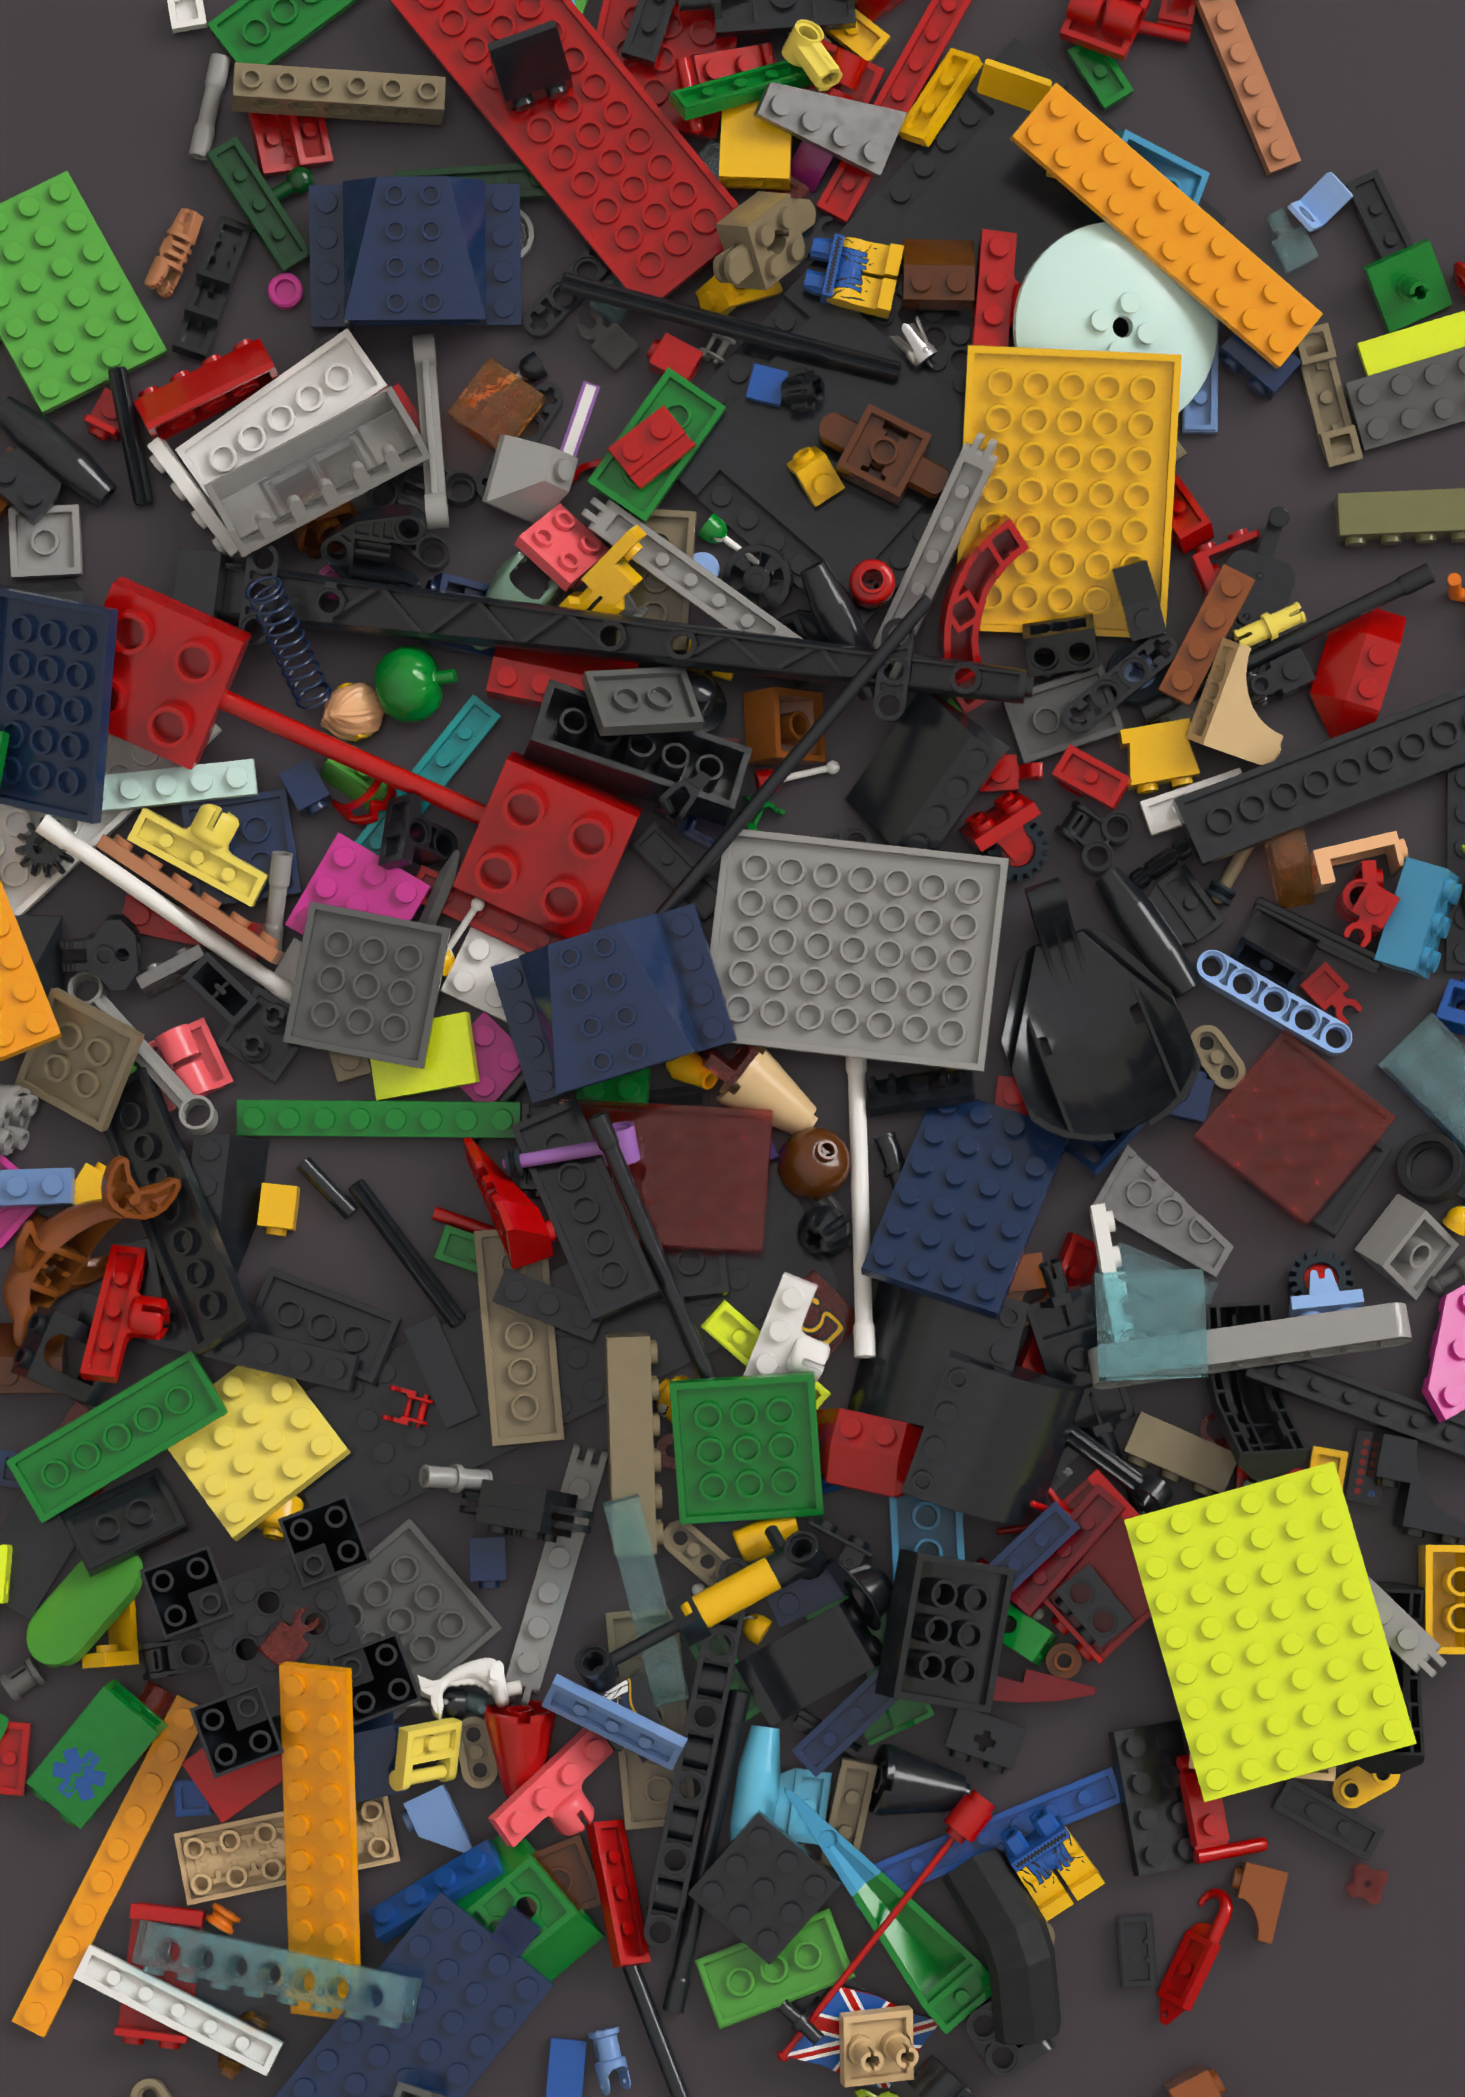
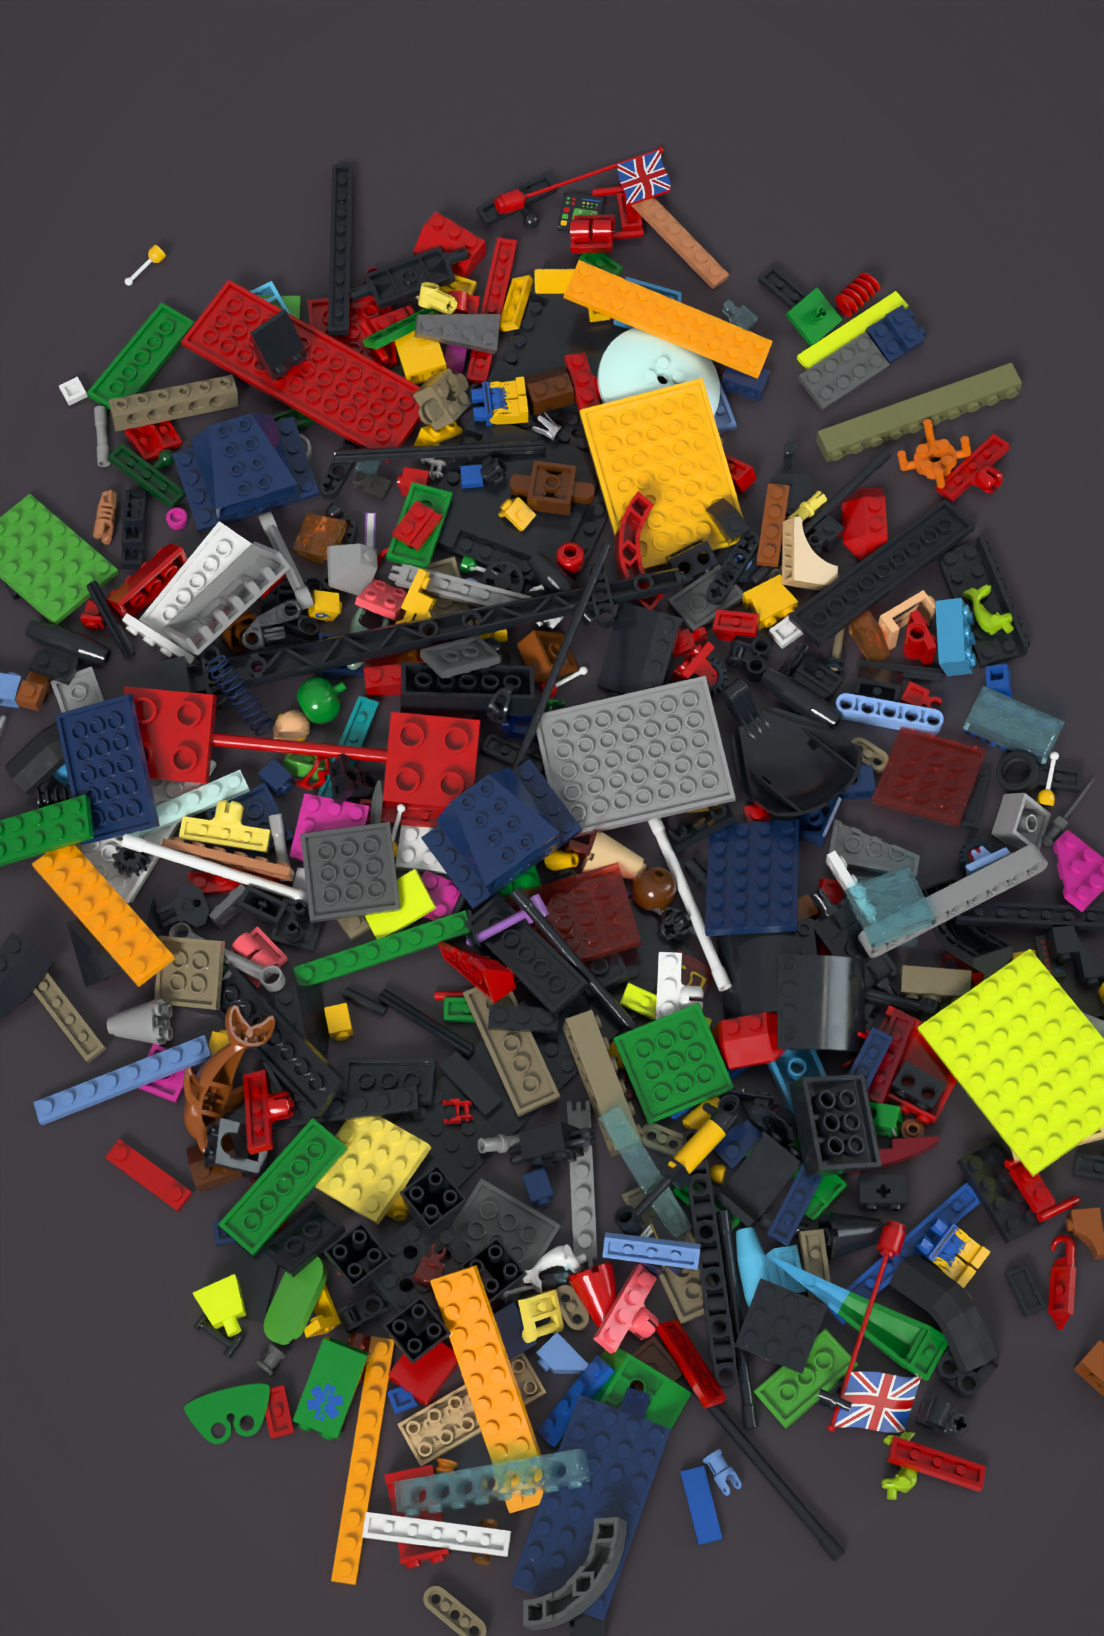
camera: 15 degrees left, 15 degrees down
(468, 526) = (325, 606): none -> yellow brick
(876, 2046) = (888, 1402): tan plate -> none
(942, 534) = (602, 512): light grey hinge -> none
(1200, 562) = (756, 489): red bracket -> none
(1321, 202) = (749, 289): light blue bracket -> none
(1326, 397) = (790, 388): dark tan slope -> none
(1372, 908) = (927, 635): red plate -> none

